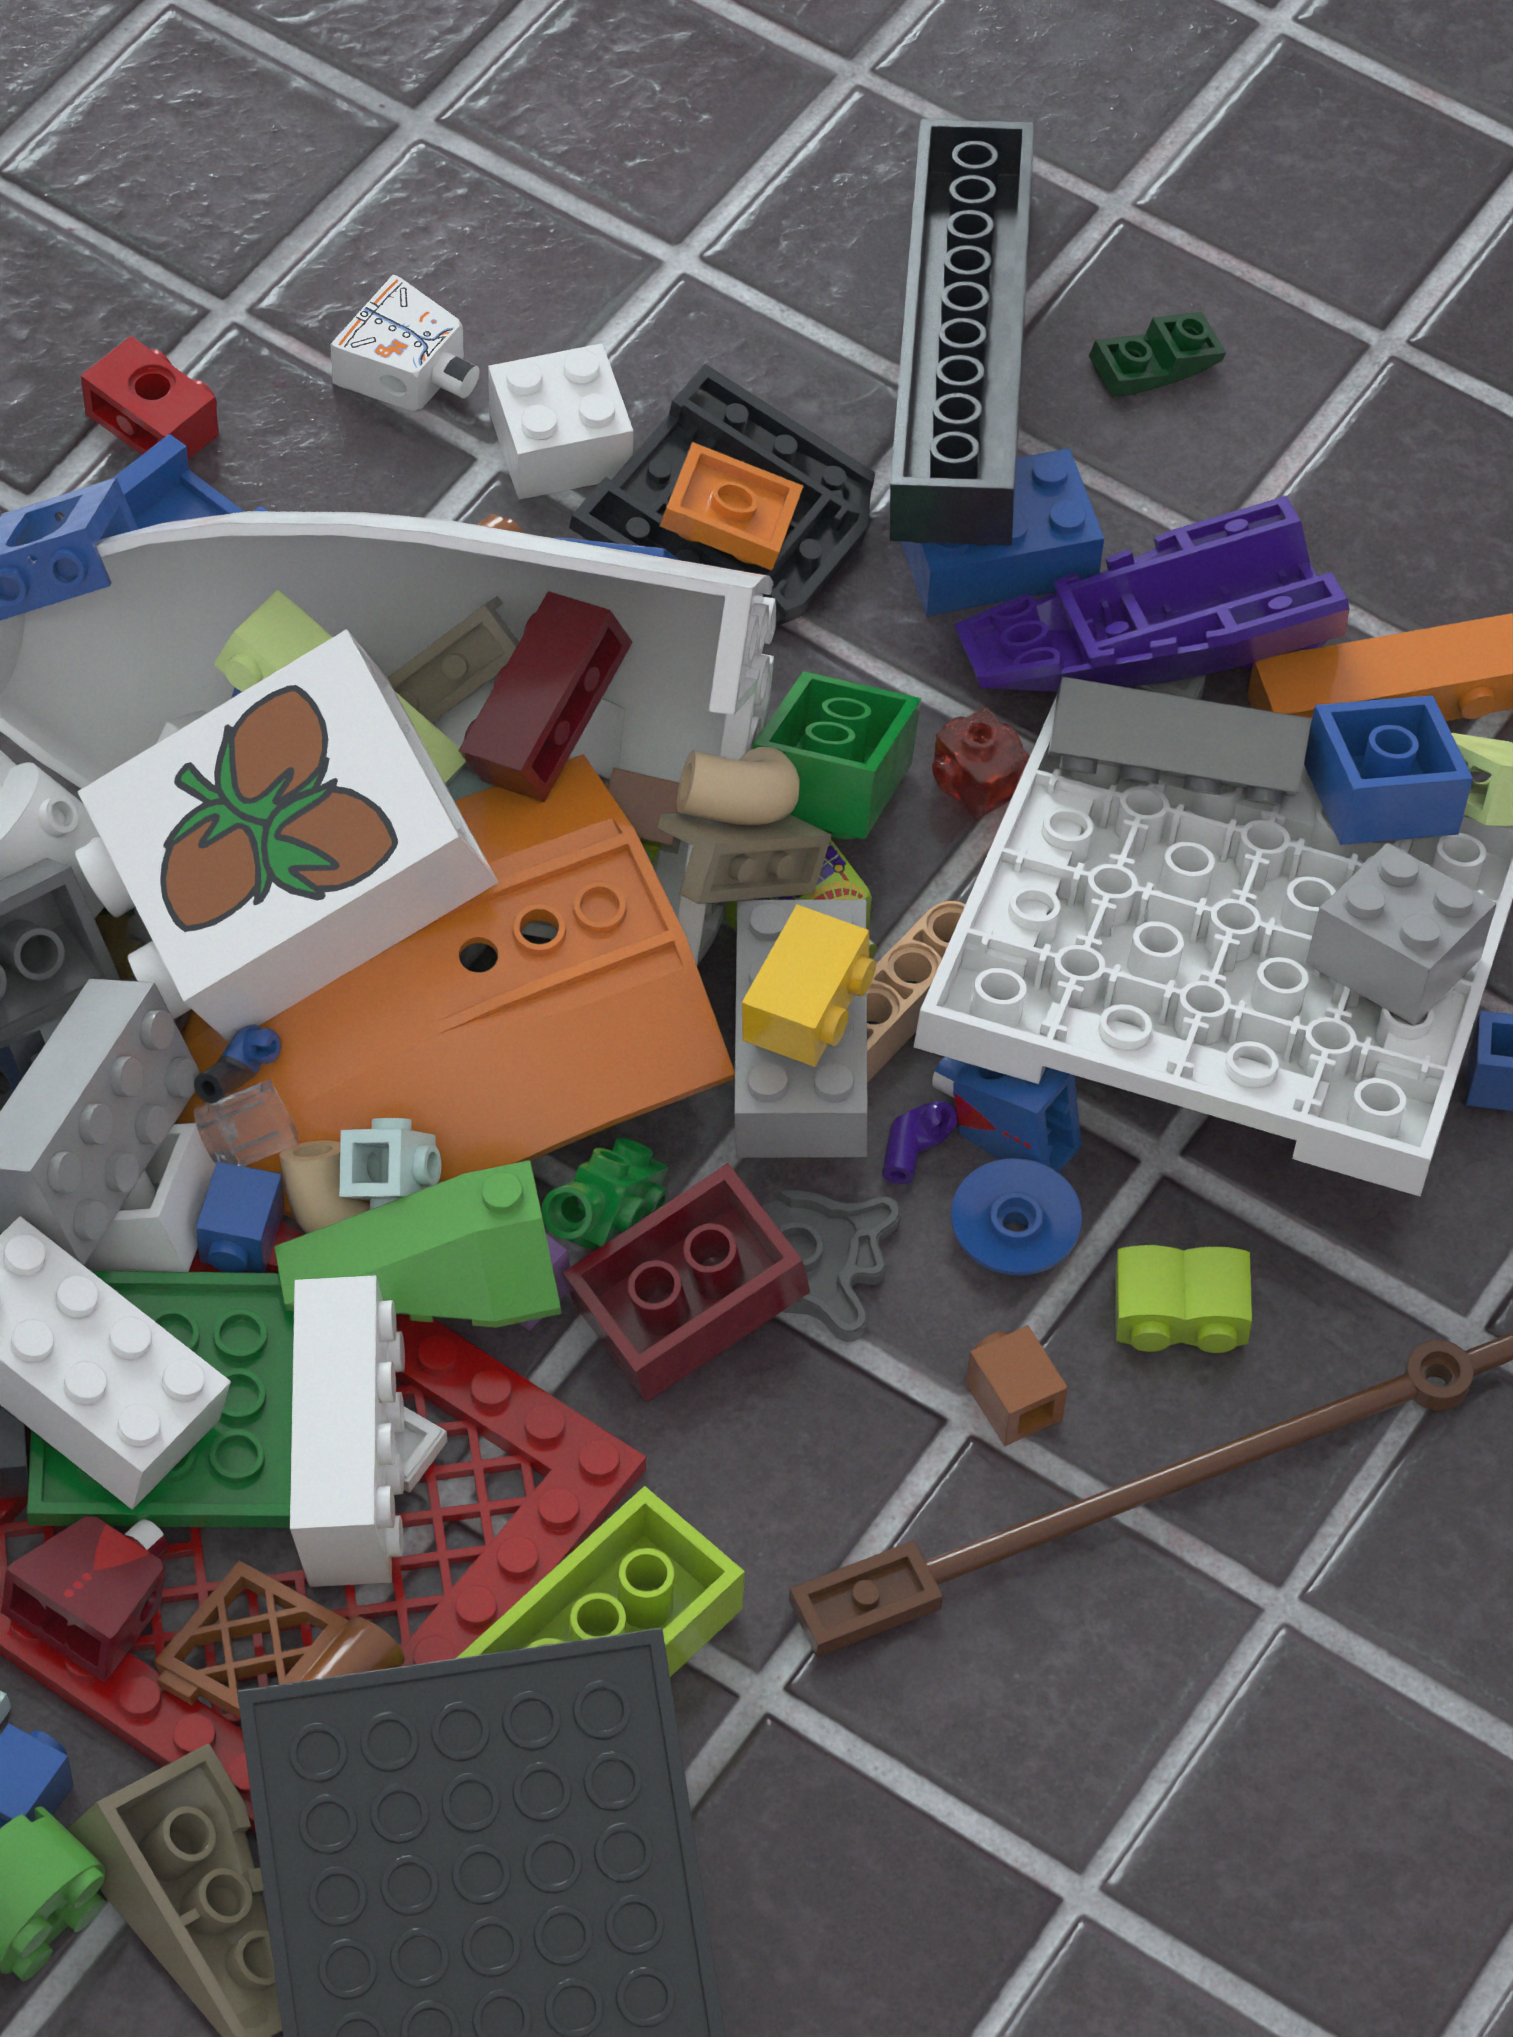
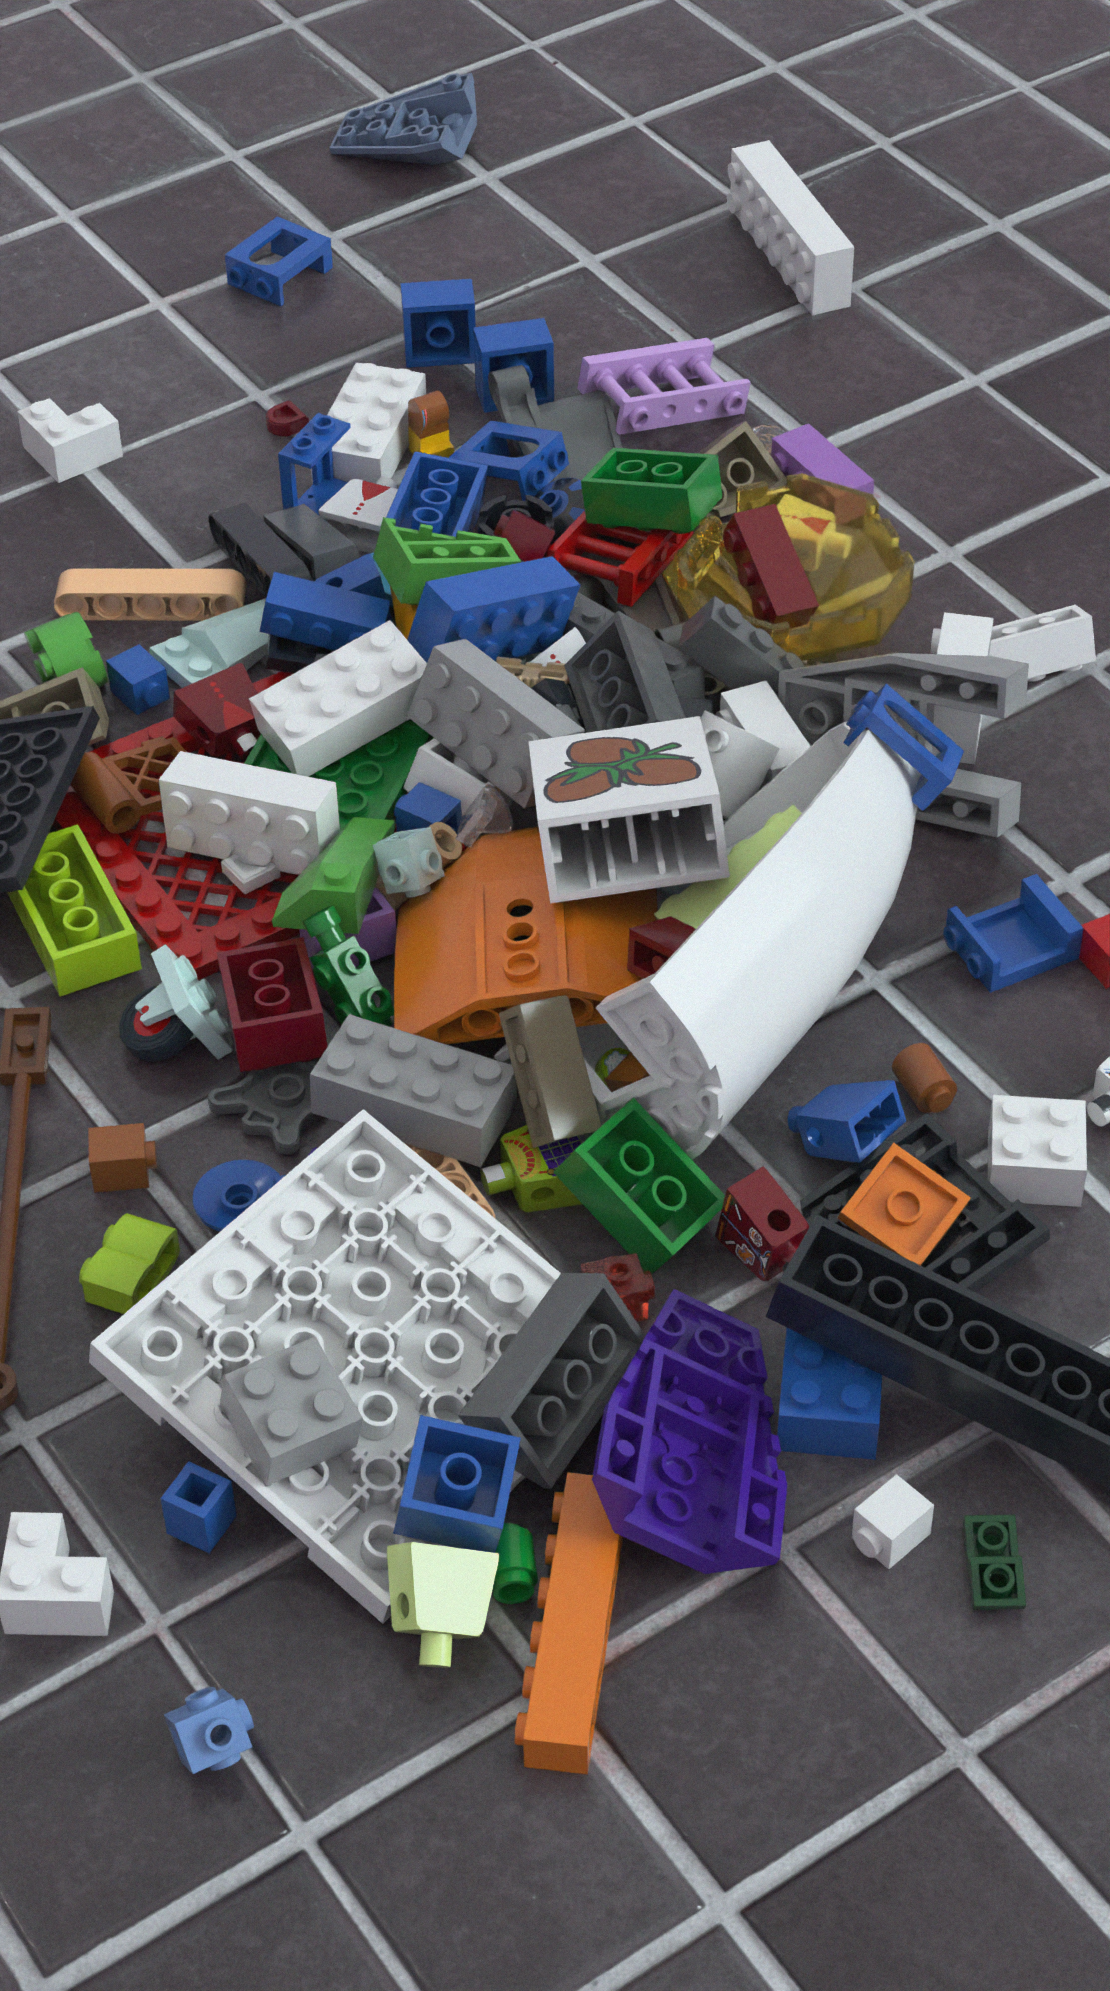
camera: 115 degrees right, 10 degrees down
(238, 1063) = (521, 817): arm -> none
(741, 791) = (573, 1061): tan cylinder -> none
(755, 1423) = (173, 1013): none -> light aqua plate
(807, 986) = (400, 1039): yellow brick -> none
(820, 619) = (760, 1224): none -> dark red torso
(1162, 438) = (892, 1522): none -> white brick

